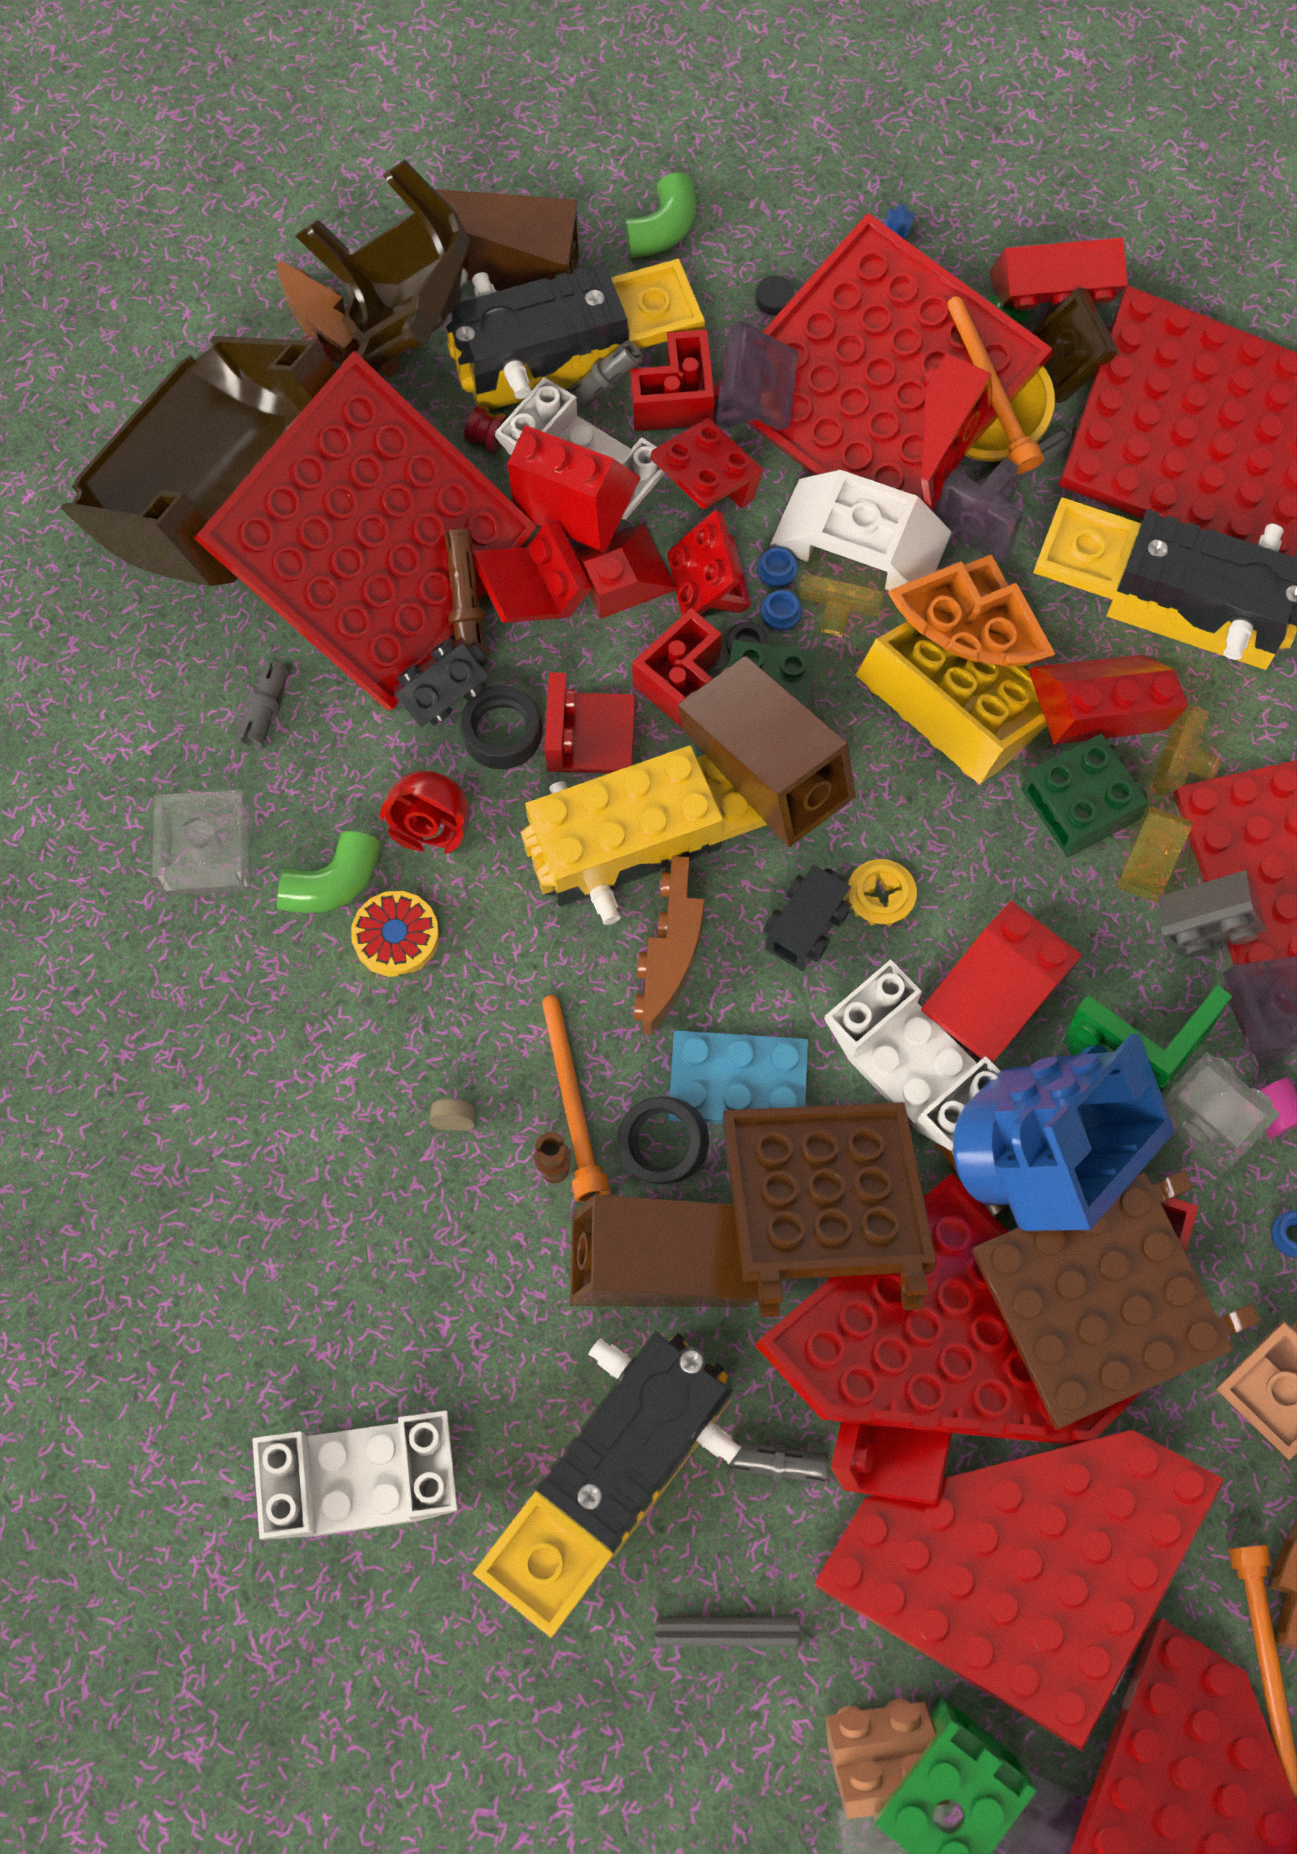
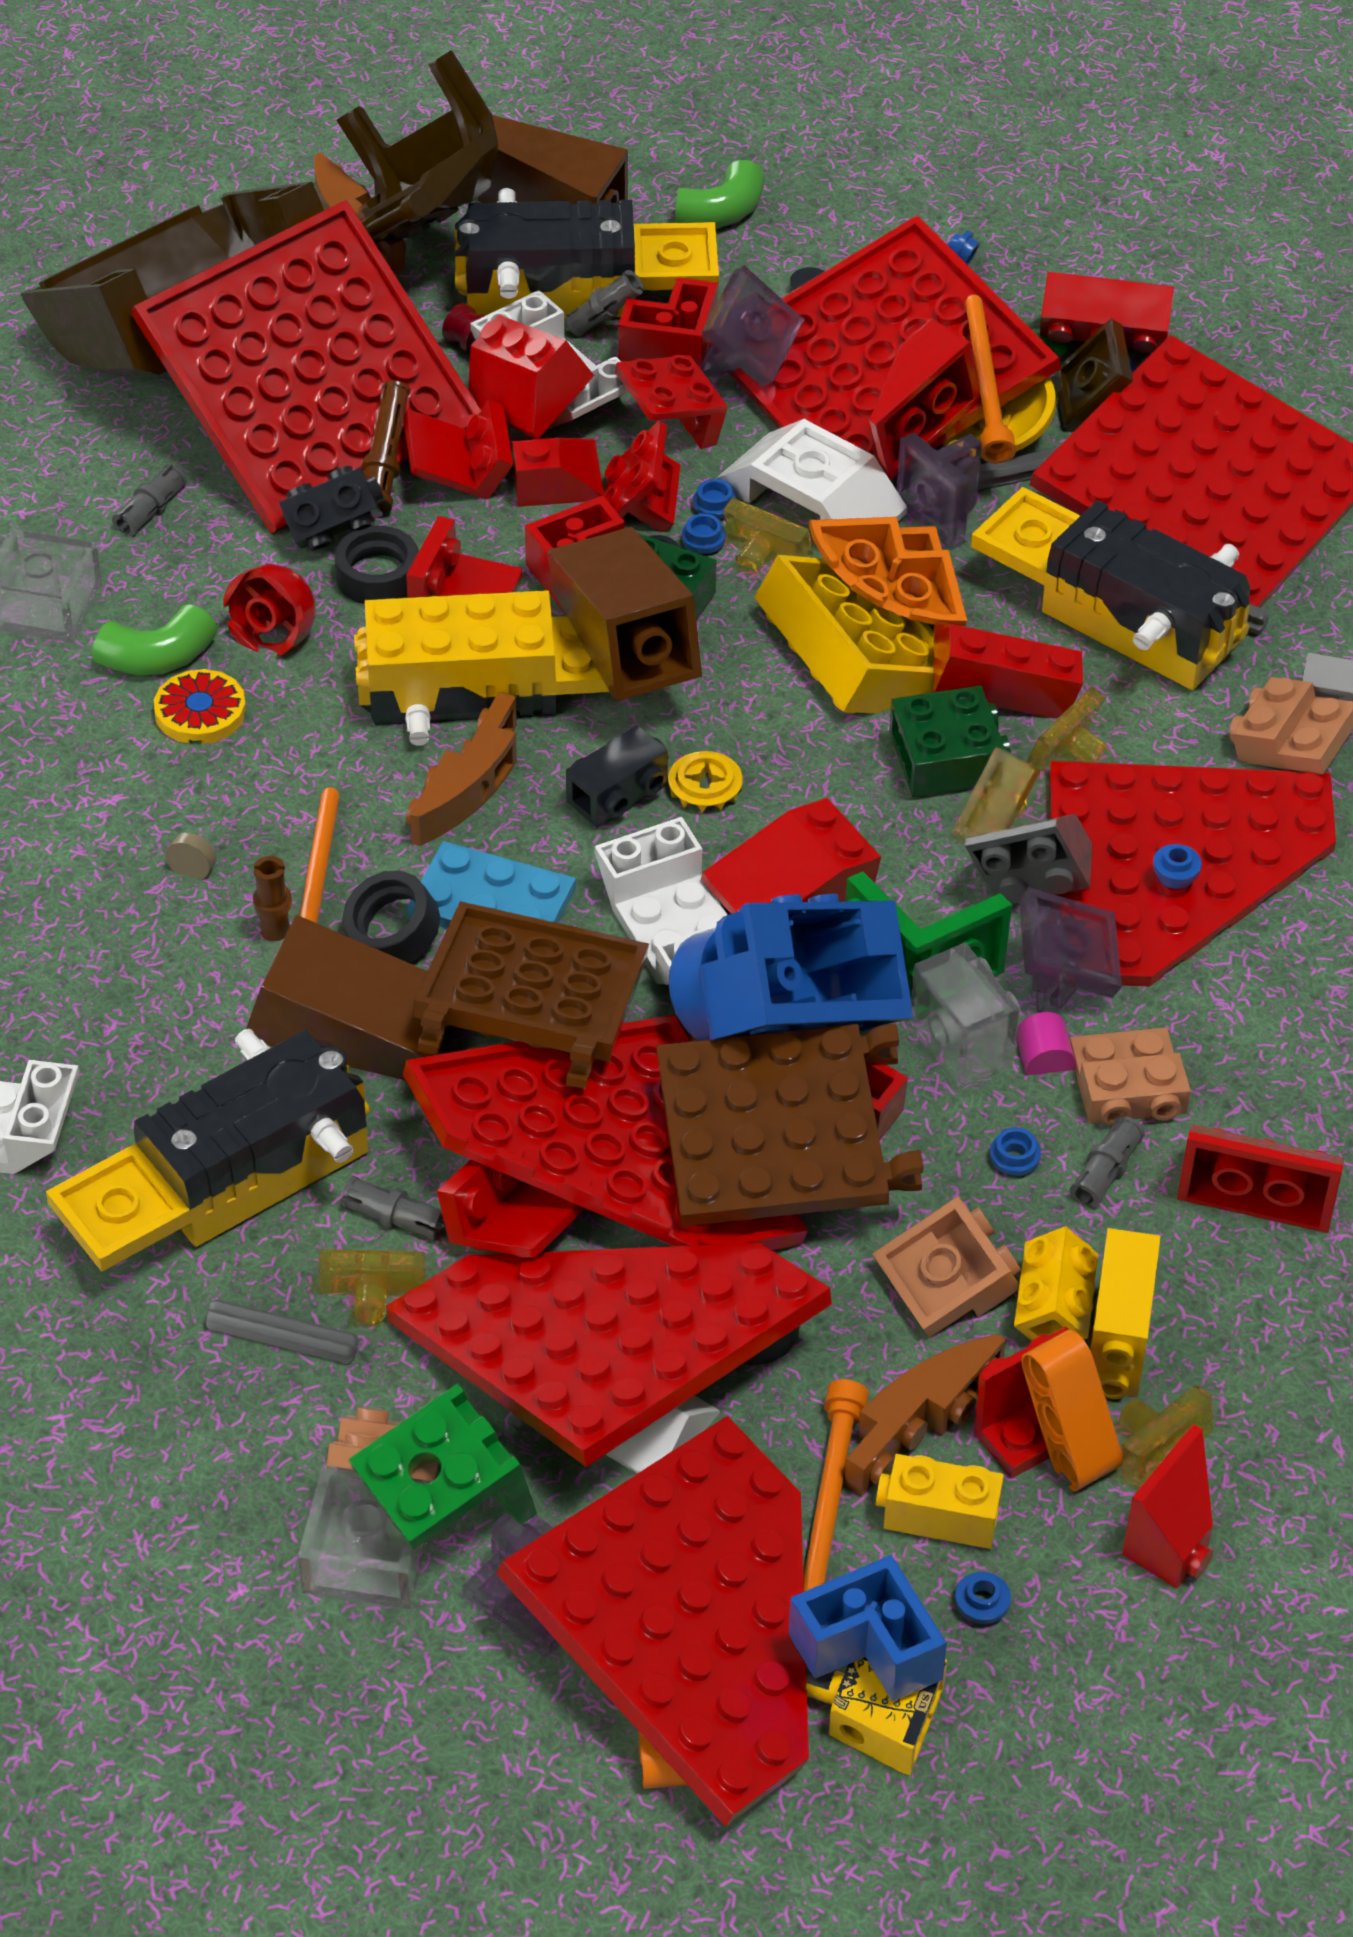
camera: 15 degrees right, 20 degrees down
(791, 1557) = (370, 1277): none -> clear yellow tile

